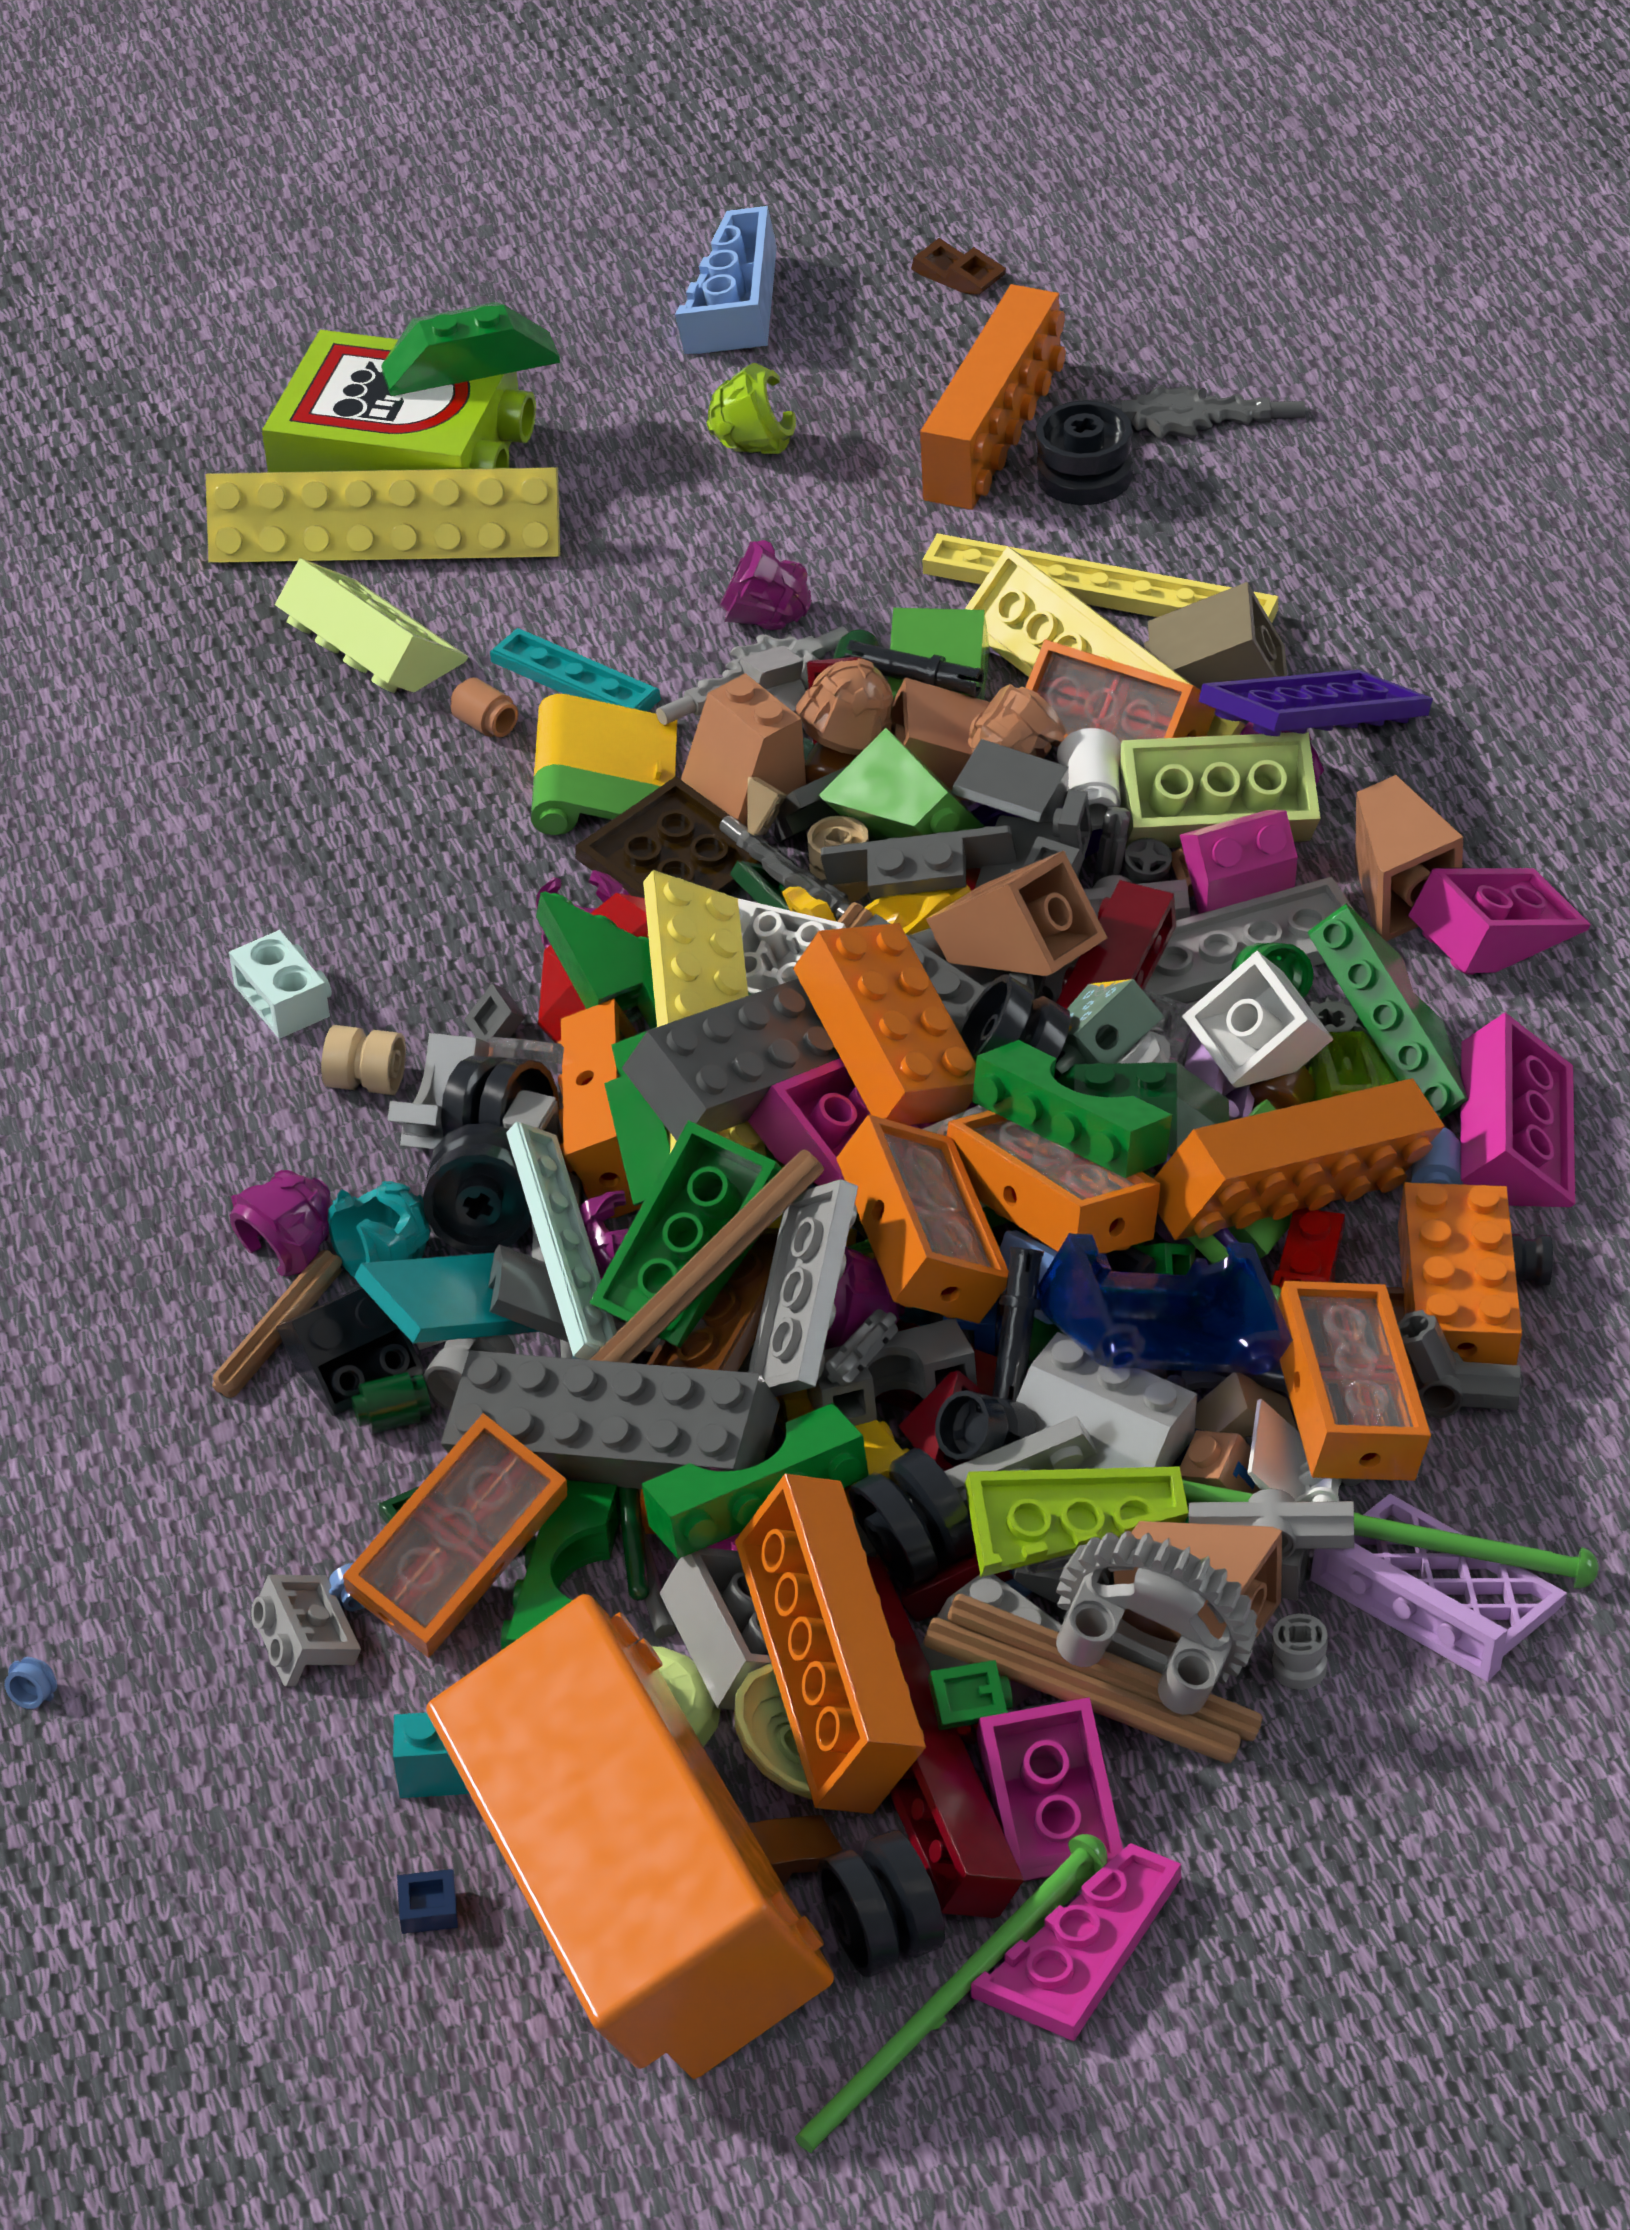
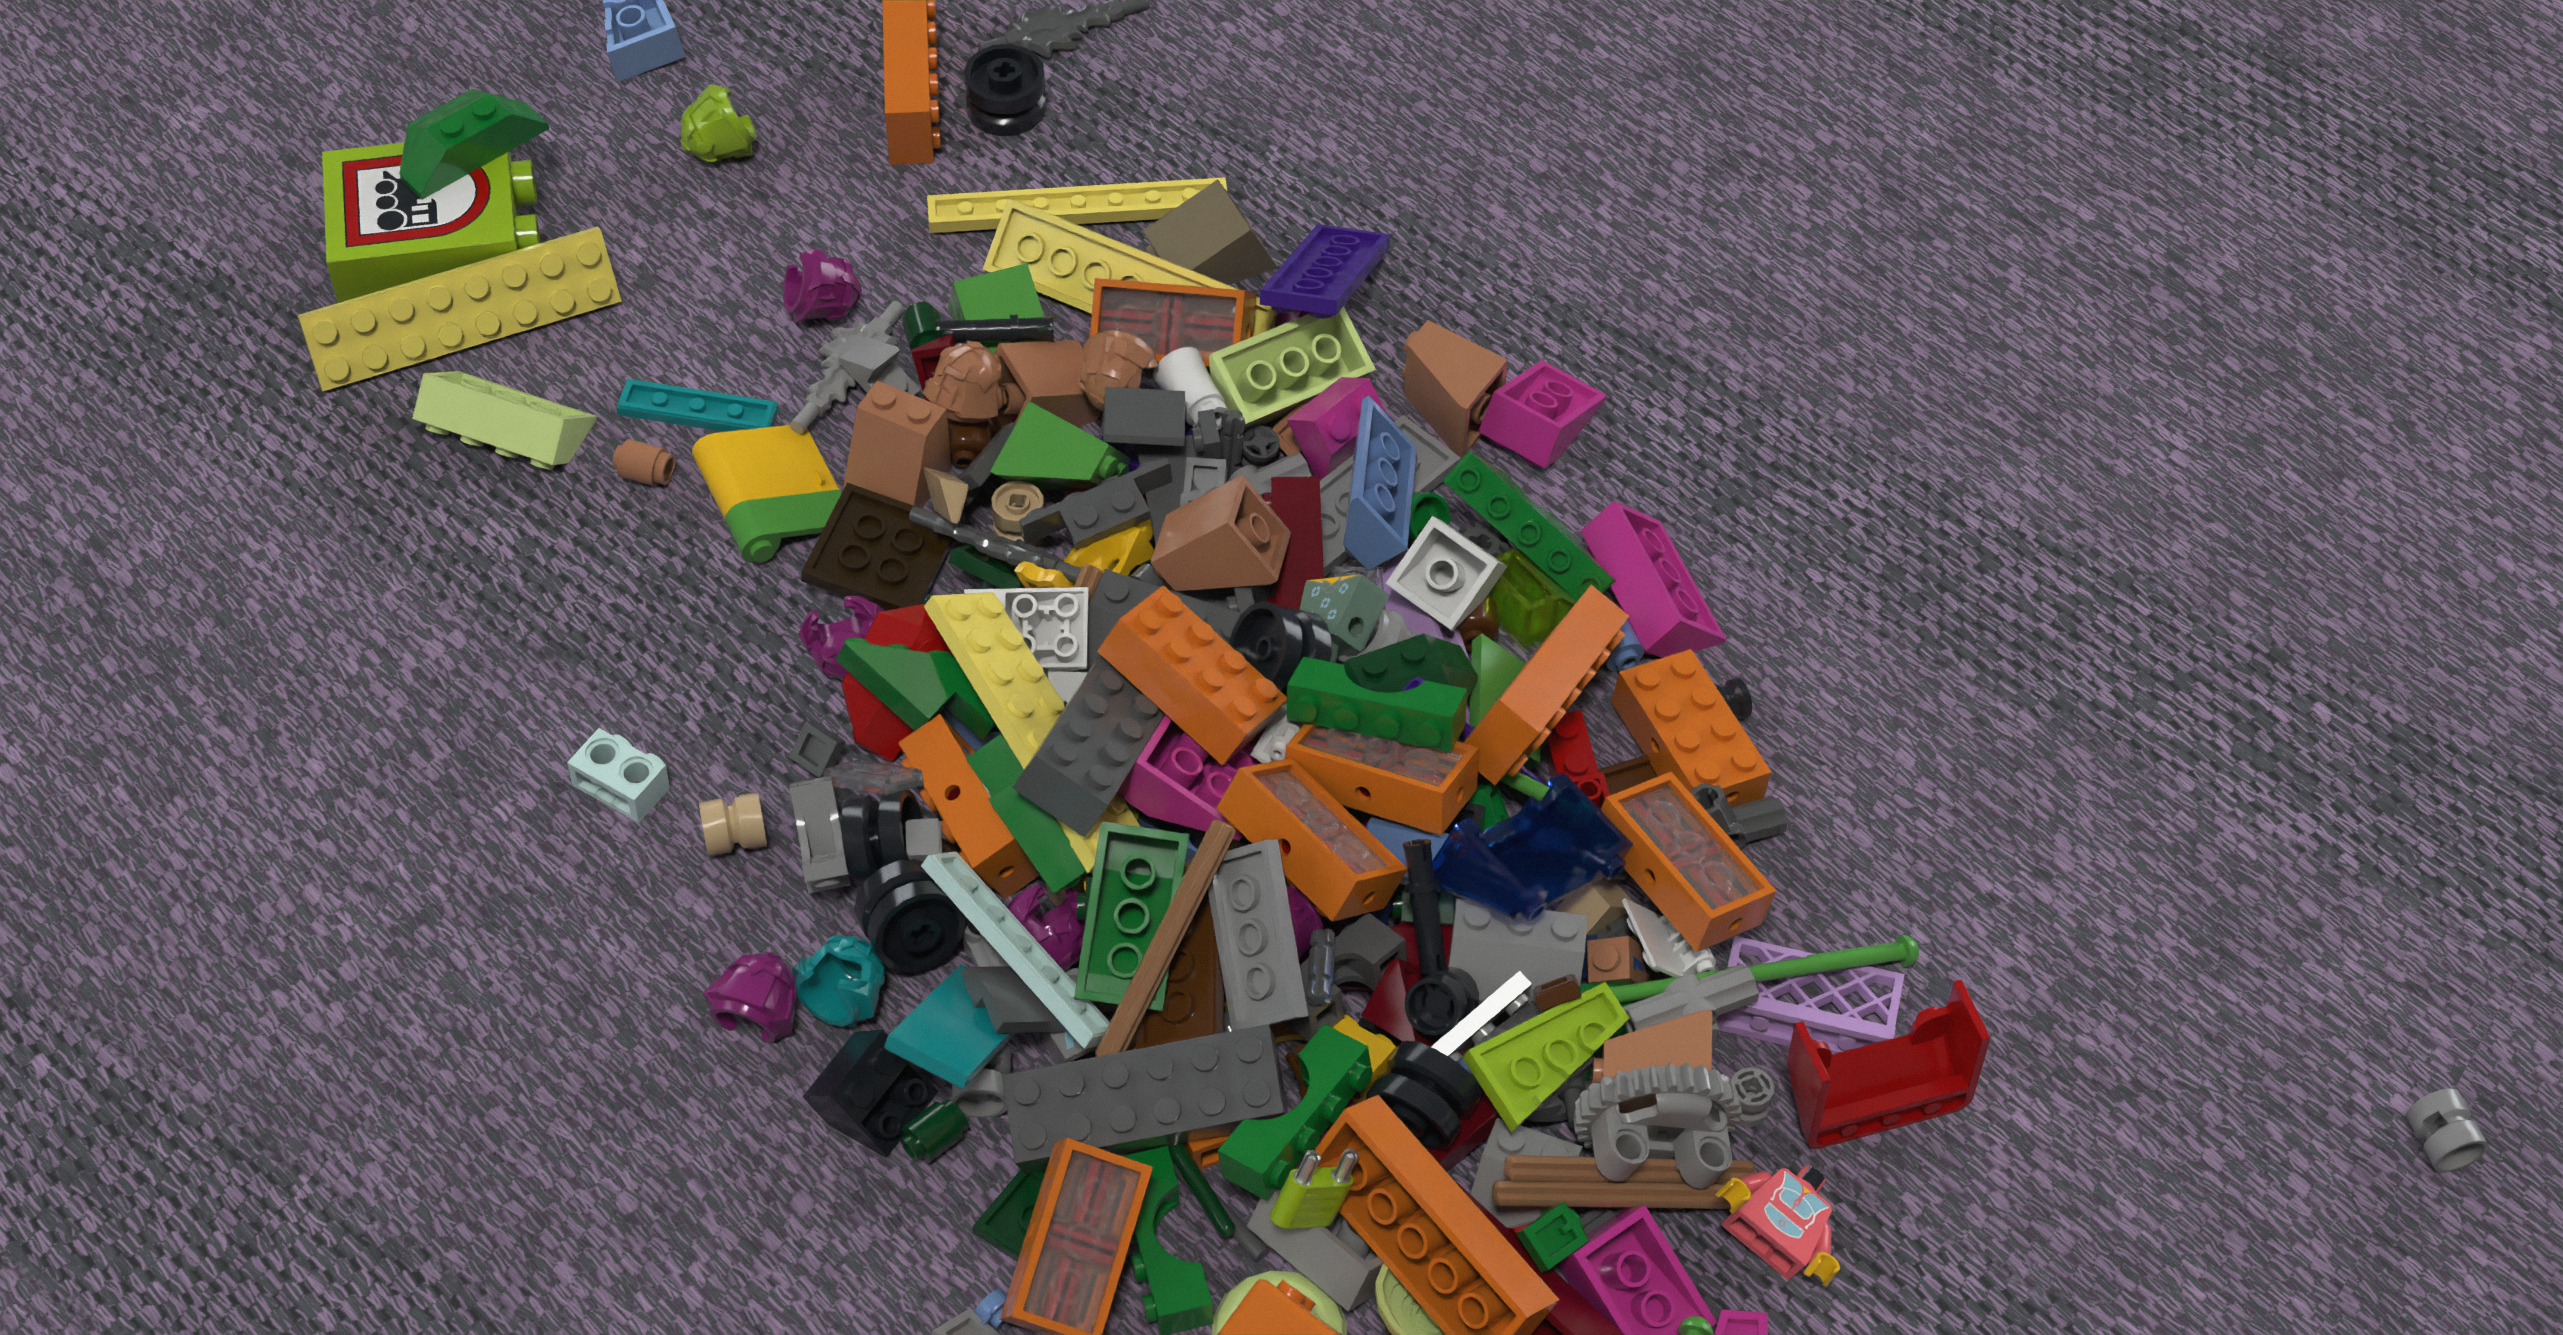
camera: 30 degrees left, 10 degrees up
(265, 1337) = (793, 1088): medium nougat axle -> none
(721, 1560) = (1314, 1193): none -> lime piece
(1118, 1457) = (1557, 992): none -> reddish brown tile
(1228, 914) = (1379, 489): none -> medium blue slope
(1251, 1772) = (1783, 1220): none -> coral torso
(1454, 1683) = (1892, 1080): none -> red windscreen

